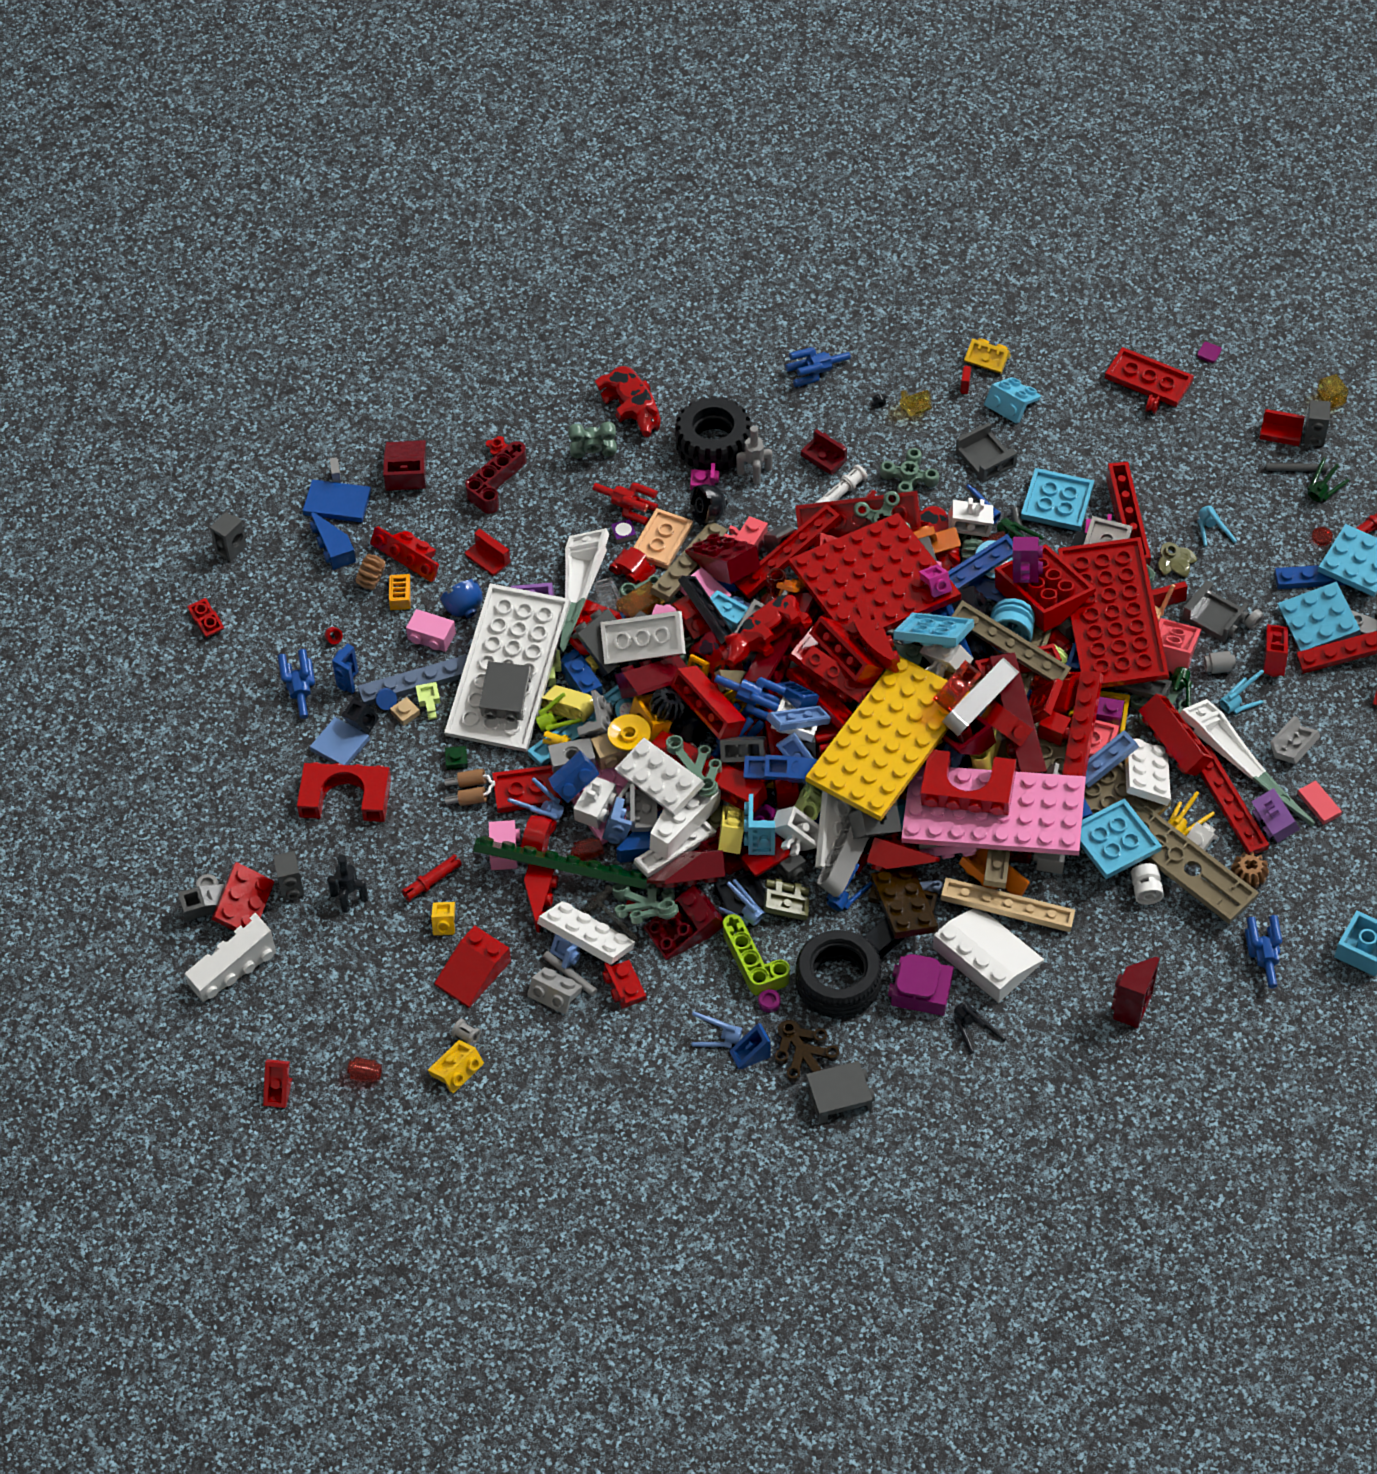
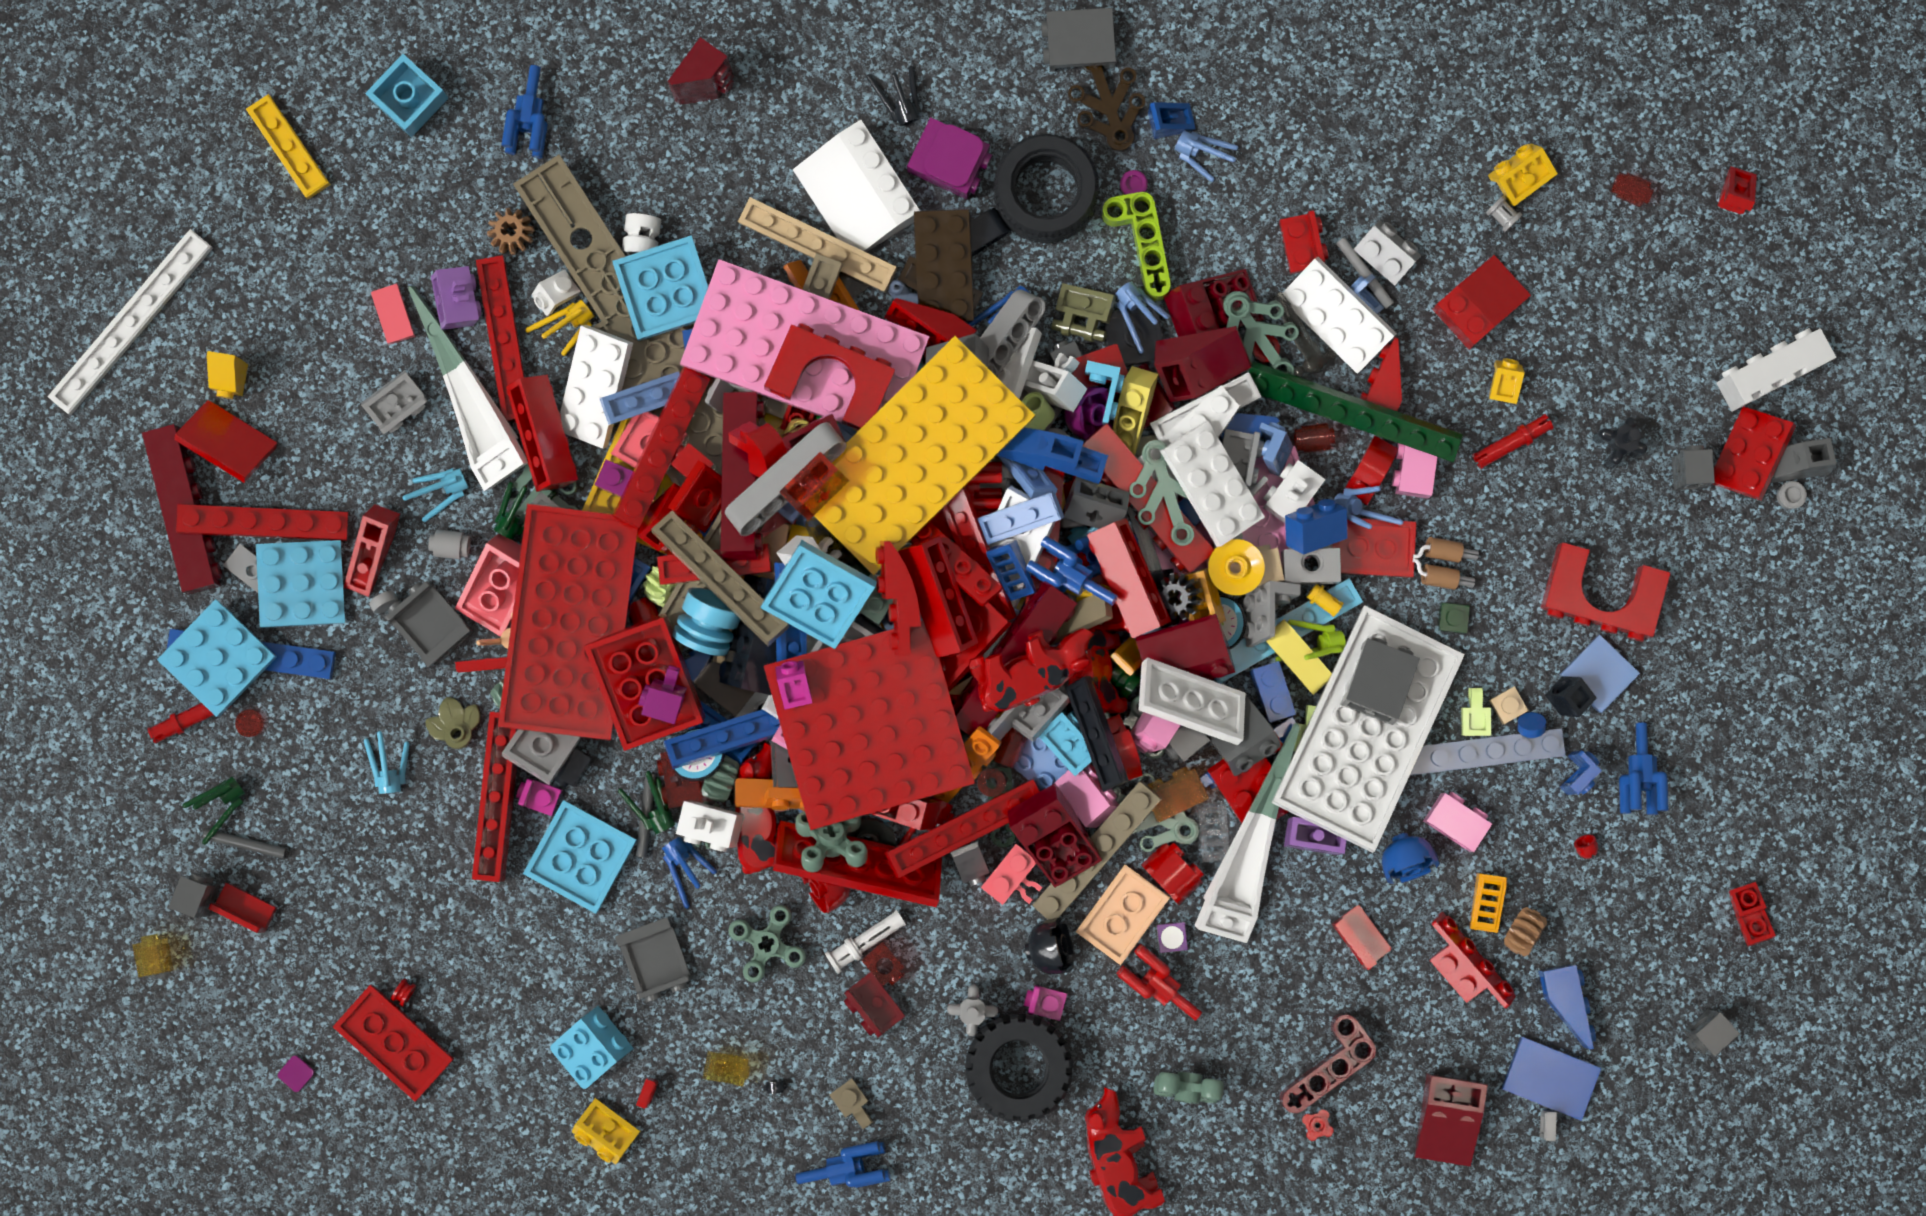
camera: 165 degrees left, 30 degrees up
(823, 403) = (850, 1100): none -> dark tan plate
(823, 476) = (879, 952): none -> clear red brick

